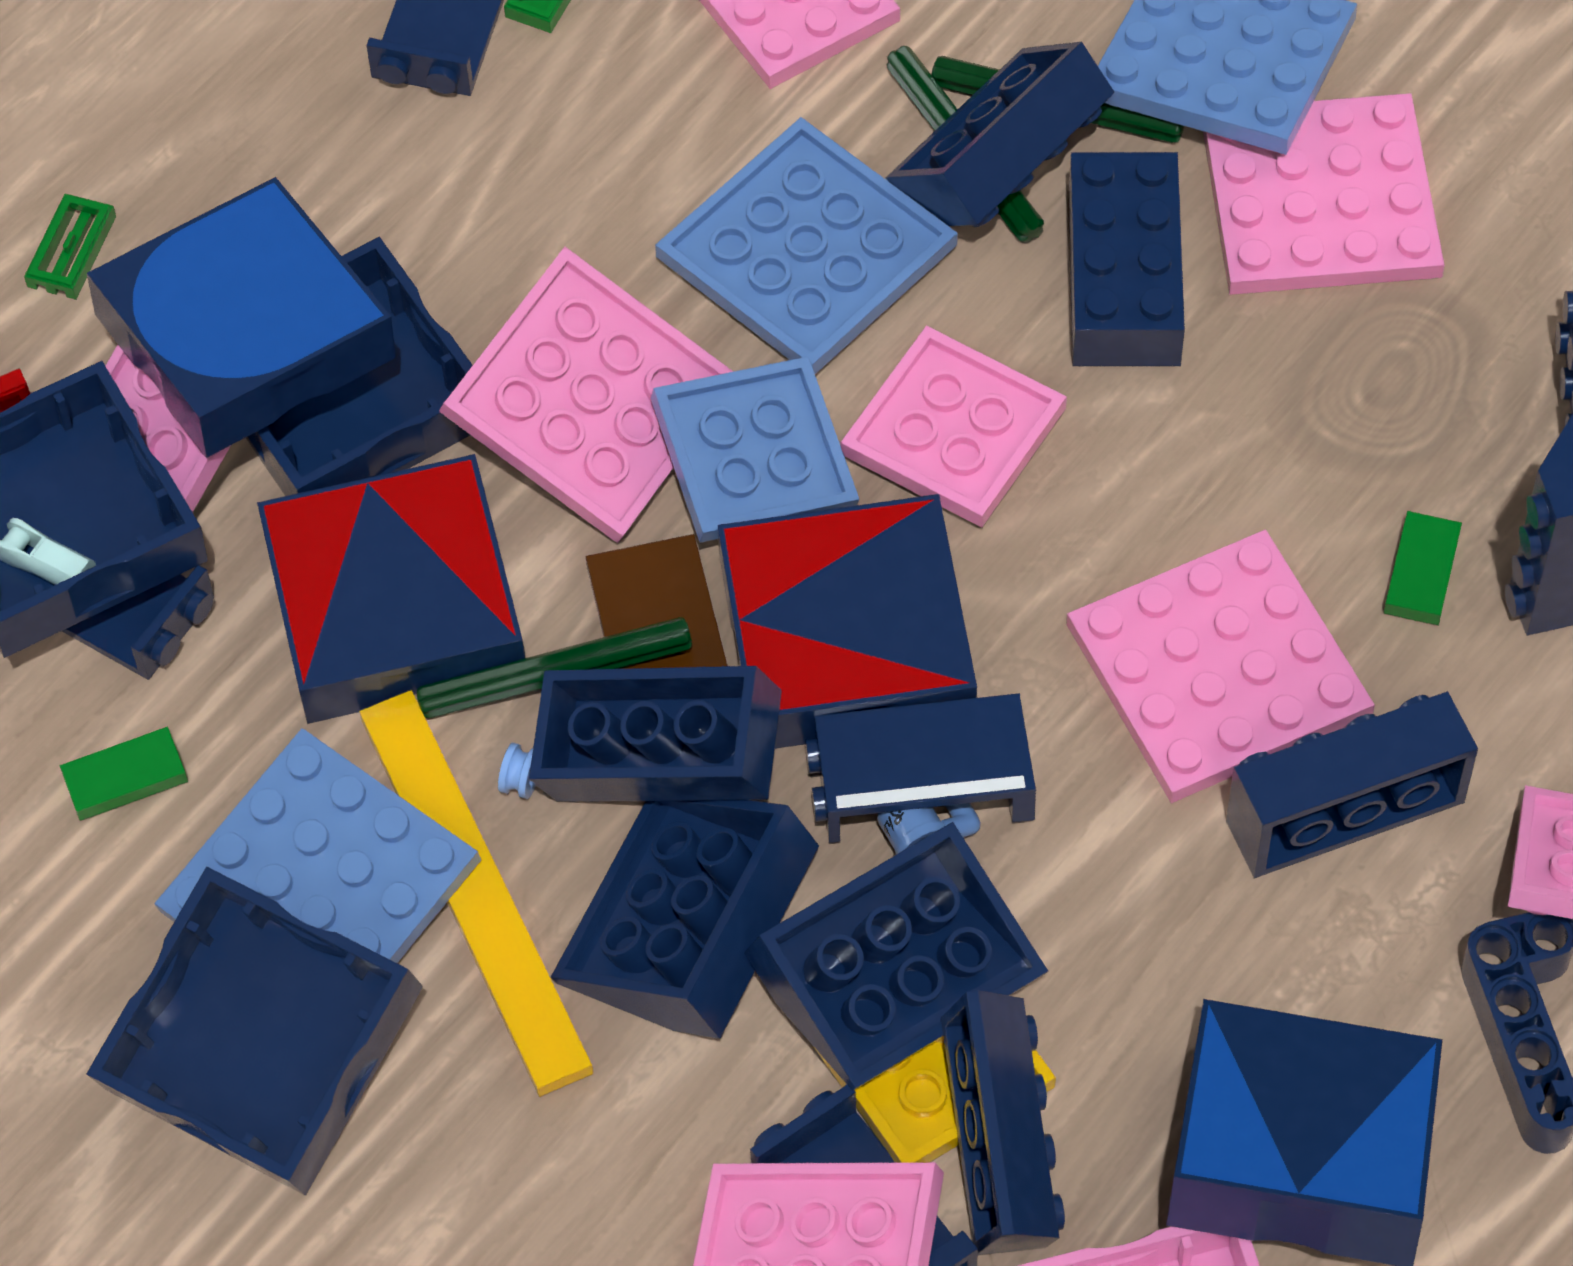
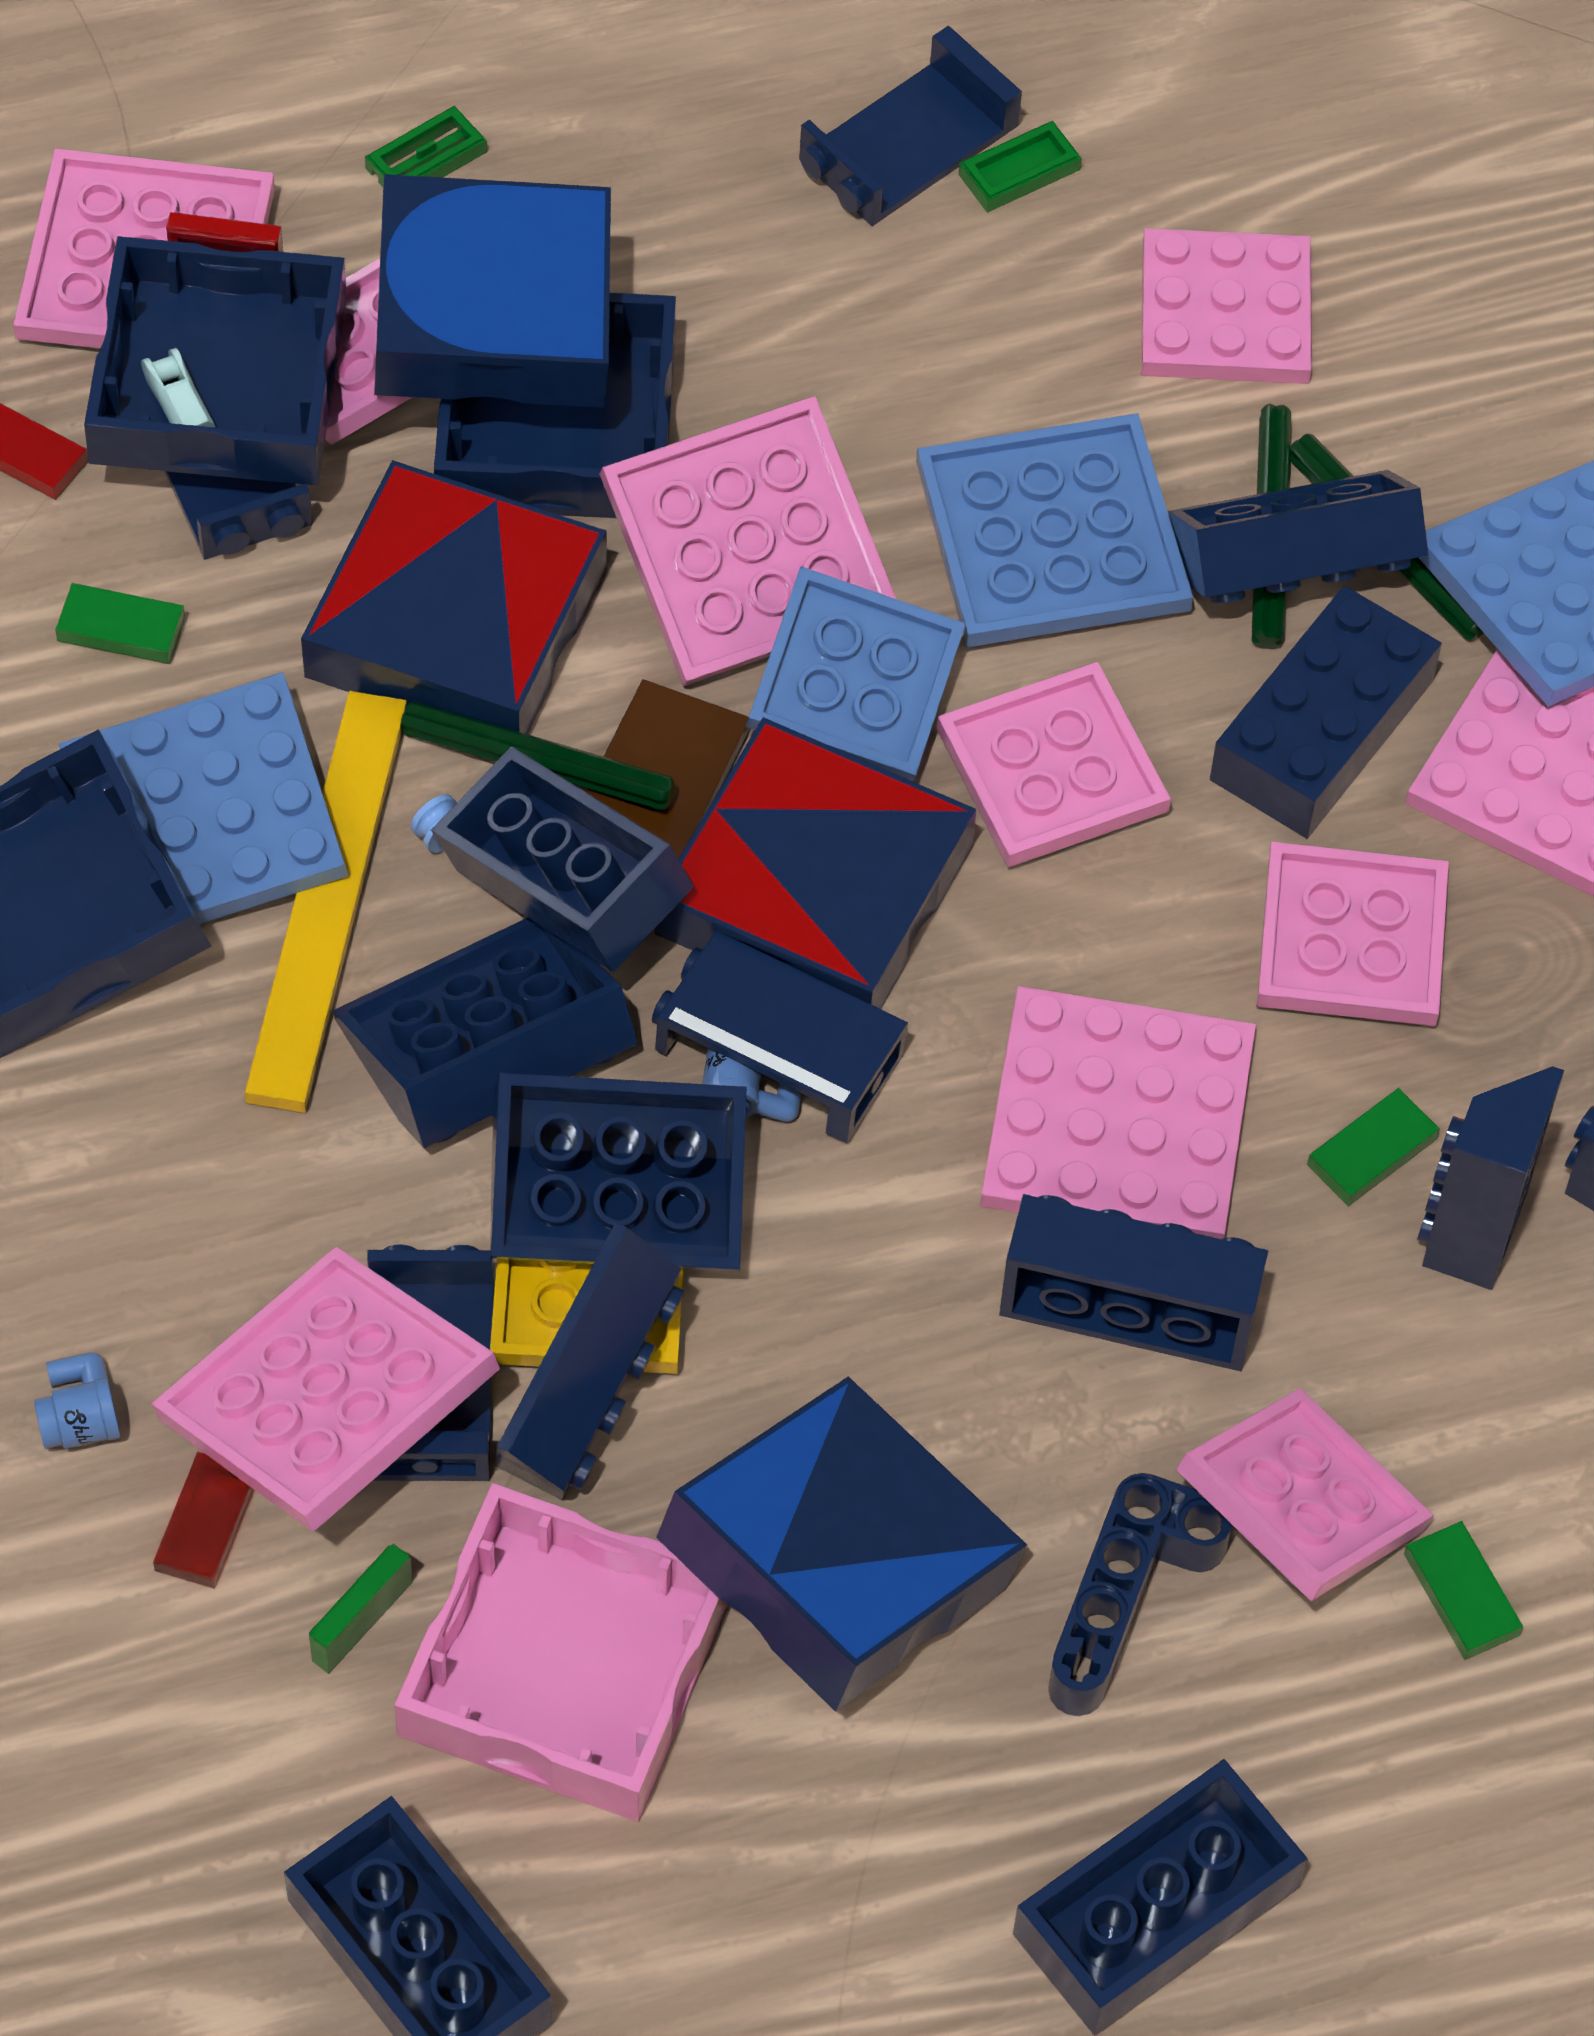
camera: 30 degrees right, 0 degrees up
(1279, 415) = (1353, 934): none -> bright pink plate

